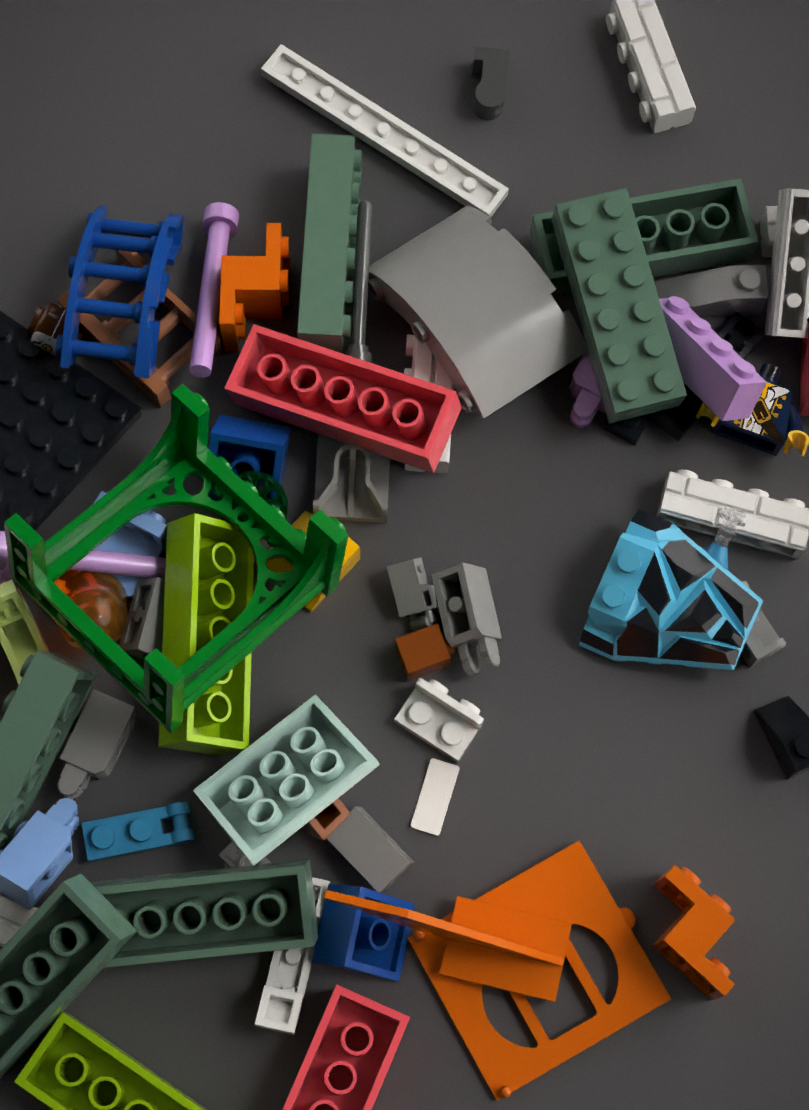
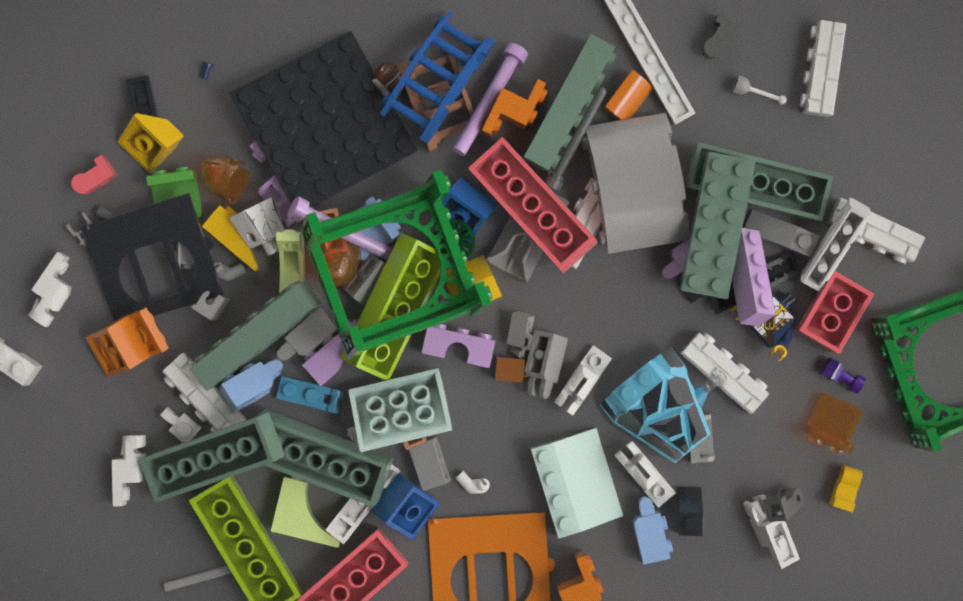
camera: 25 degrees right, 15 degrees up
(142, 764) = (327, 361): none -> lavender slope
(195, 1029) = (295, 517): none -> yellowish green arch
(360, 641) = (479, 348): none -> lavender arch
(405, 207) = (628, 97): none -> orange brick
(435, 796) = (479, 450): white sticker -> none
(440, 718) = (500, 410): white bracket -> none
(452, 852) = (473, 486): none -> white arm
(487, 943) = (465, 544): orange piece -> none
(537, 616) = (583, 378): none -> white plate
(553, 129) = (742, 86): none -> hinge
(602, 773) = (576, 482): none -> light aqua slope
(698, 711) = (646, 475): none -> white plate
(751, 794) = (650, 533): none -> light blue hinge

